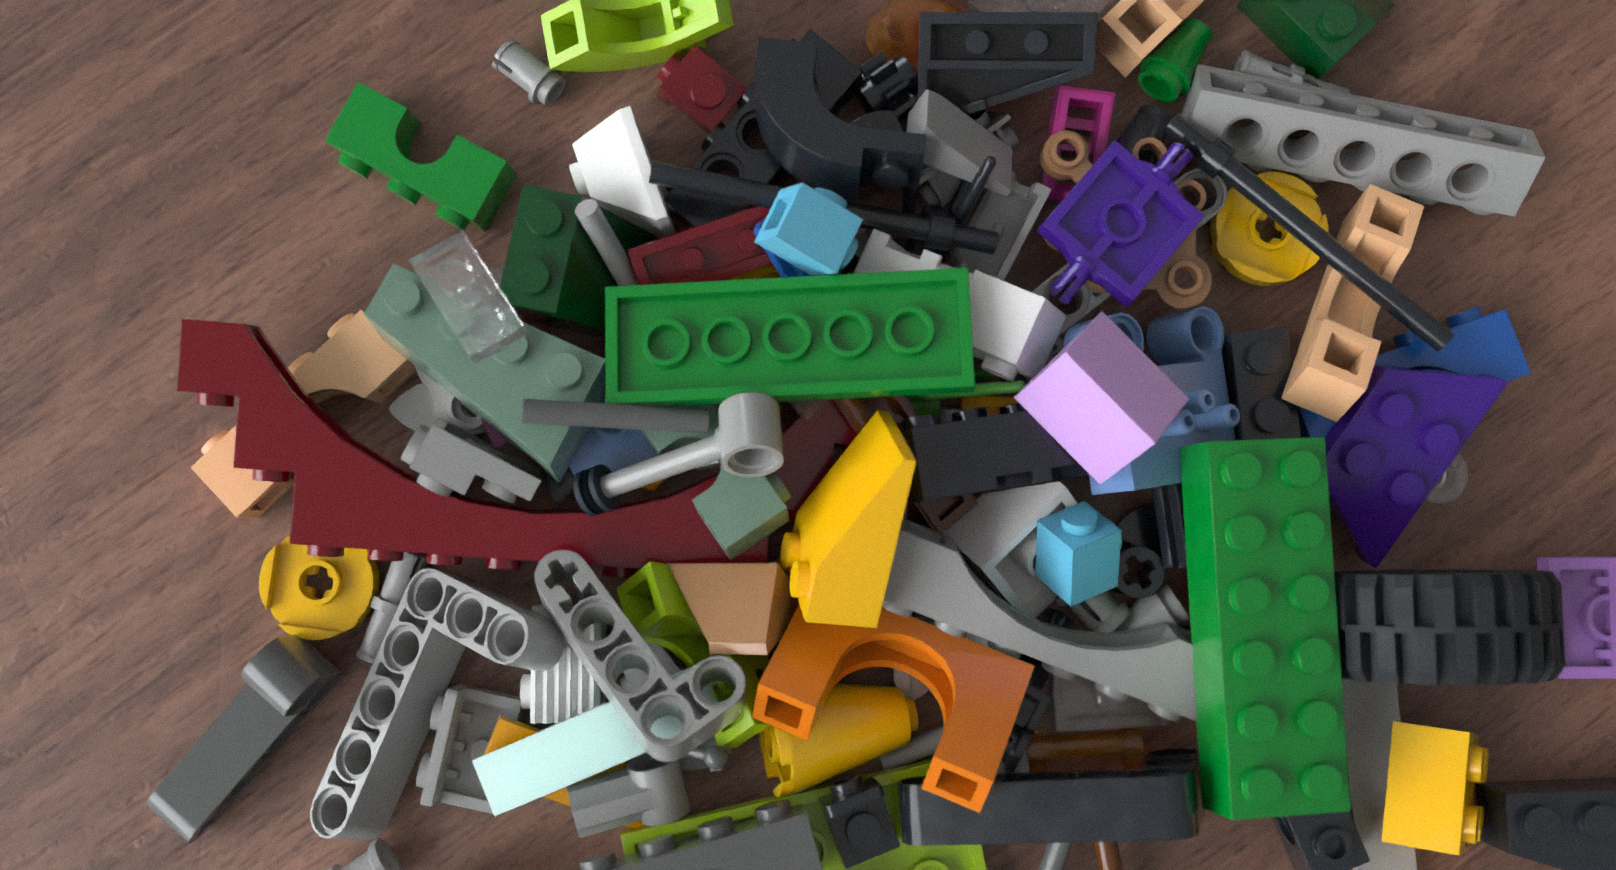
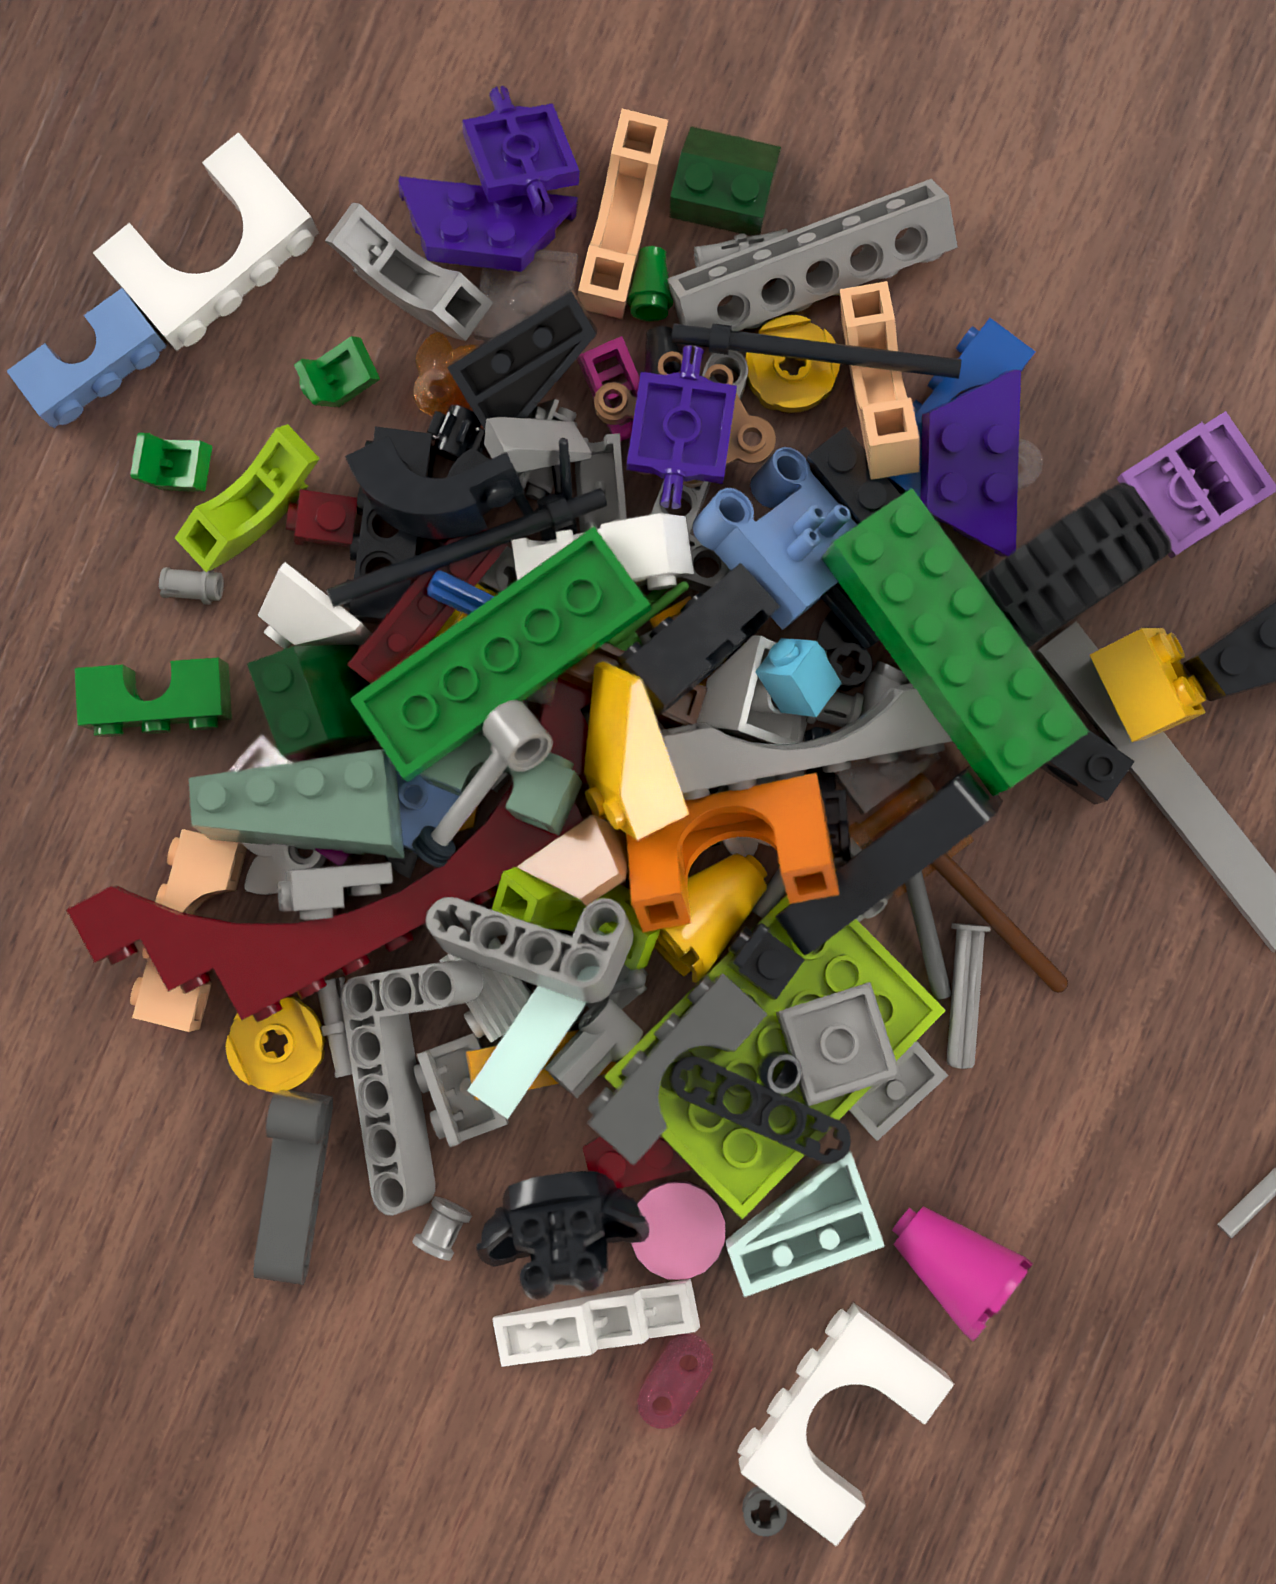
camera: 30 degrees left, 0 degrees up
(468, 297) = (260, 765): clear plate -> none
(606, 242) = (330, 668): light grey bar -> none
(615, 416) = (415, 782): dark grey bar -> none
(810, 229) = (468, 568): medium azure brick -> none
(1102, 399) = (743, 558): lavender slope -> none

